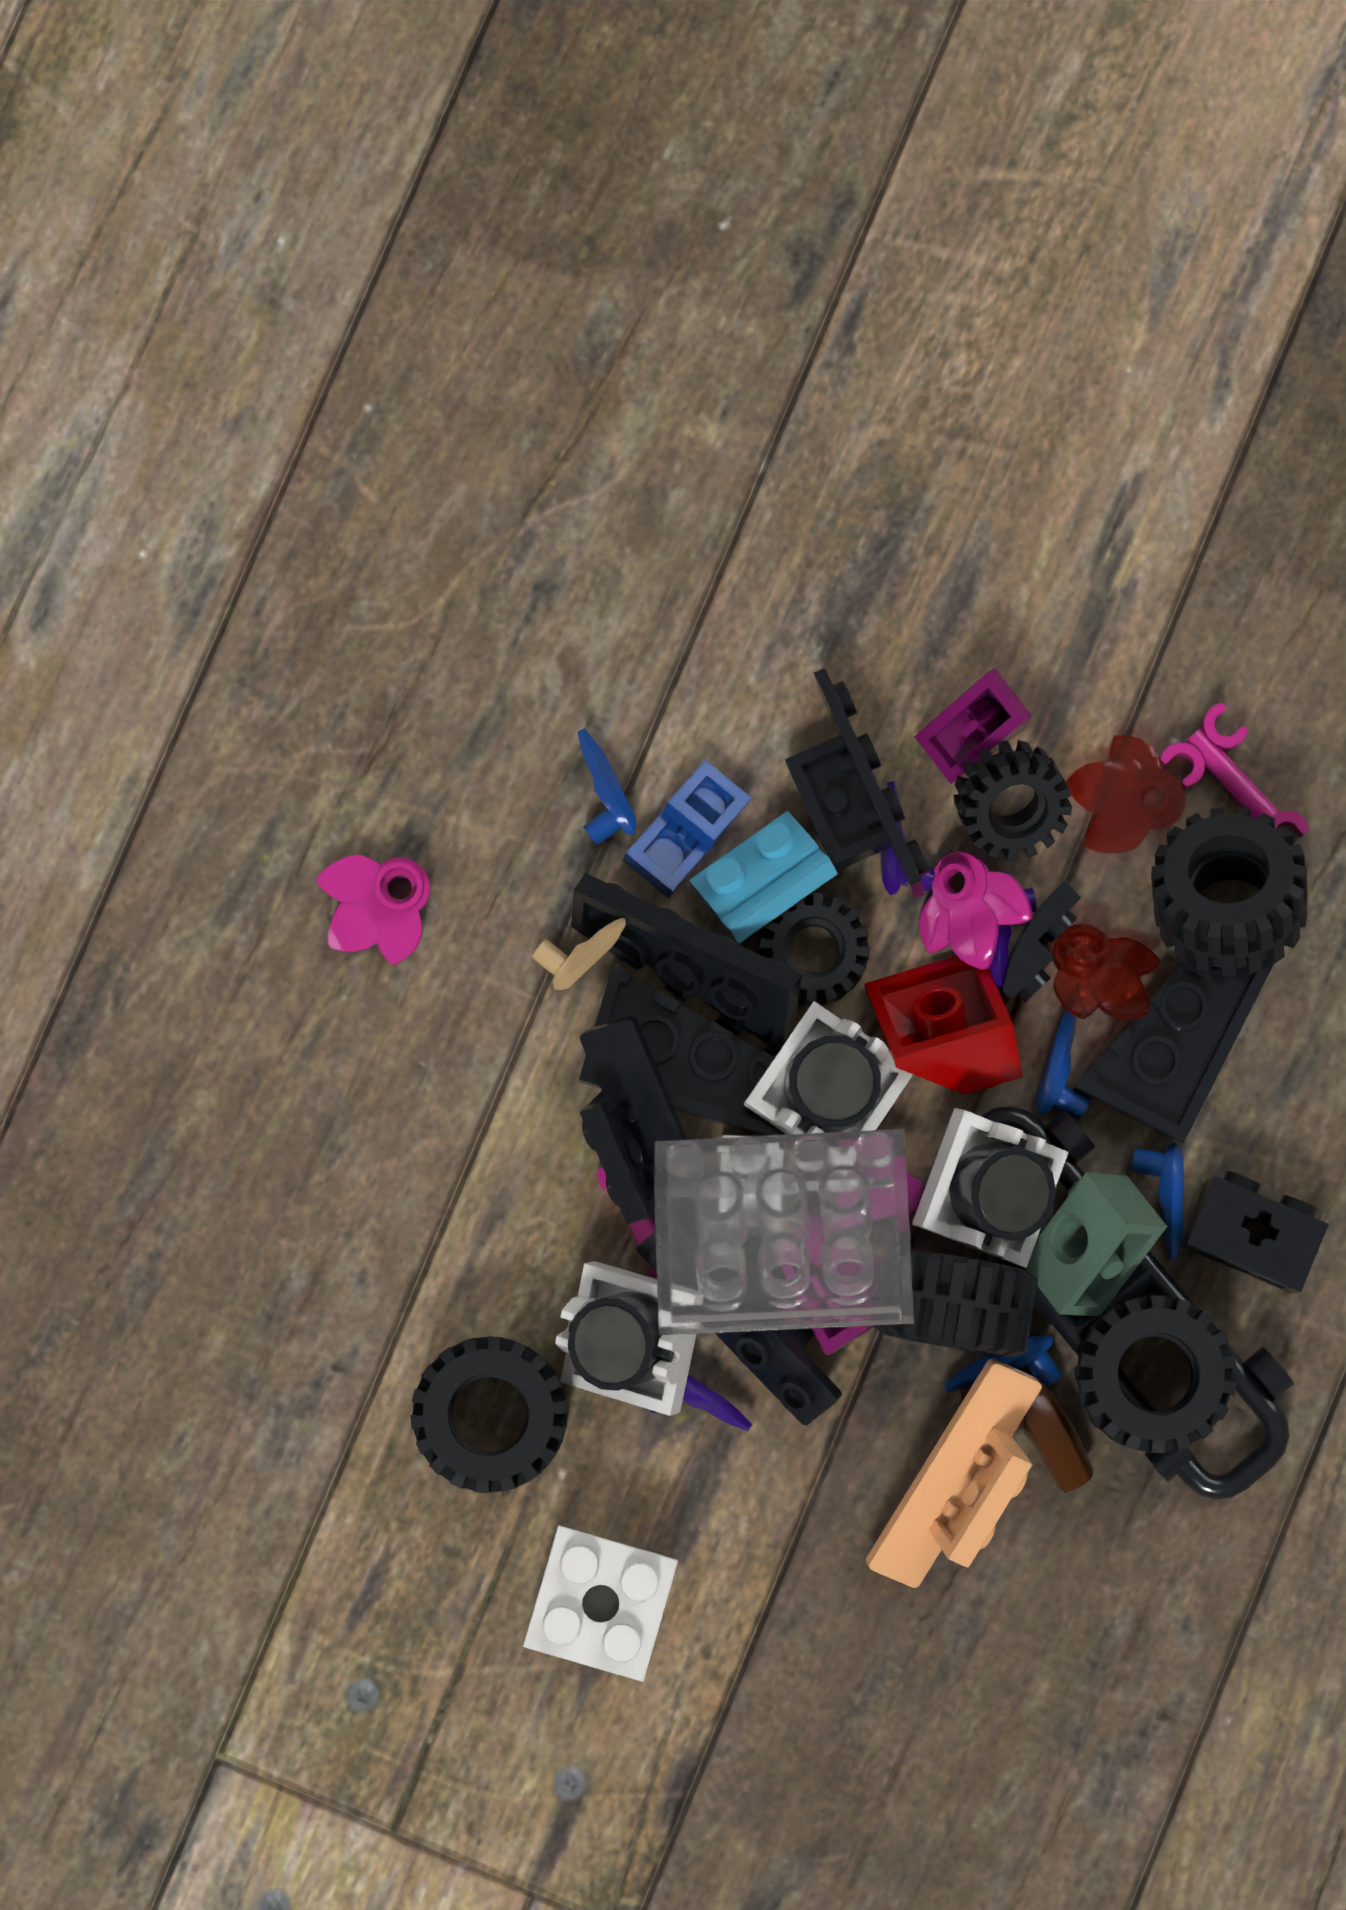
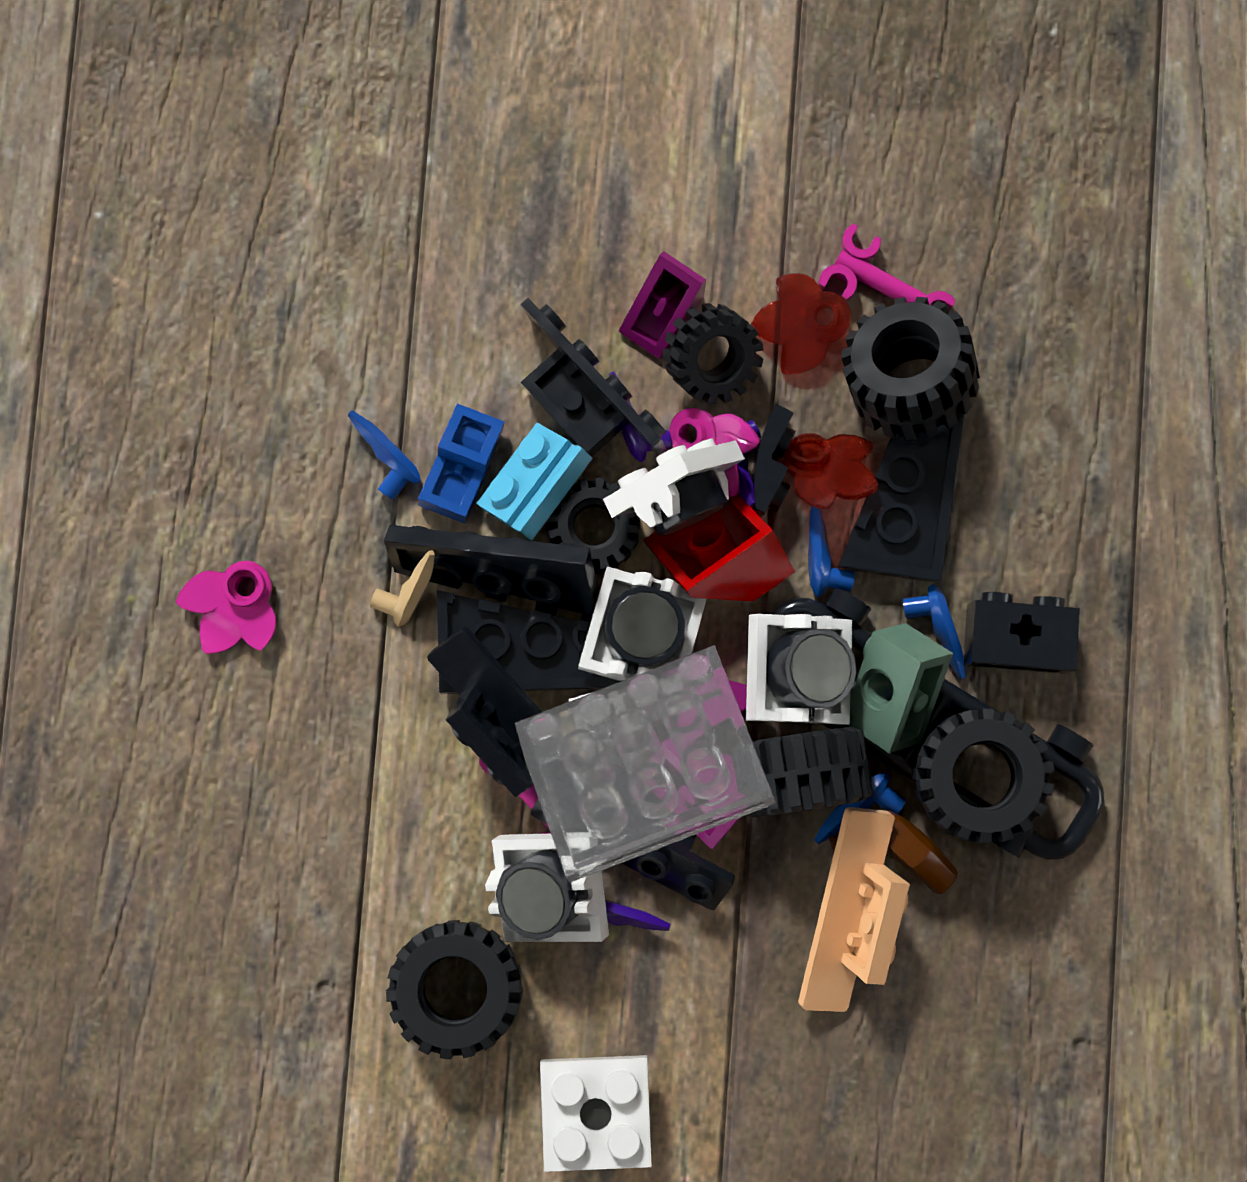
camera: 15 degrees left, 0 degrees up
(922, 943) = (681, 489): none -> white piece

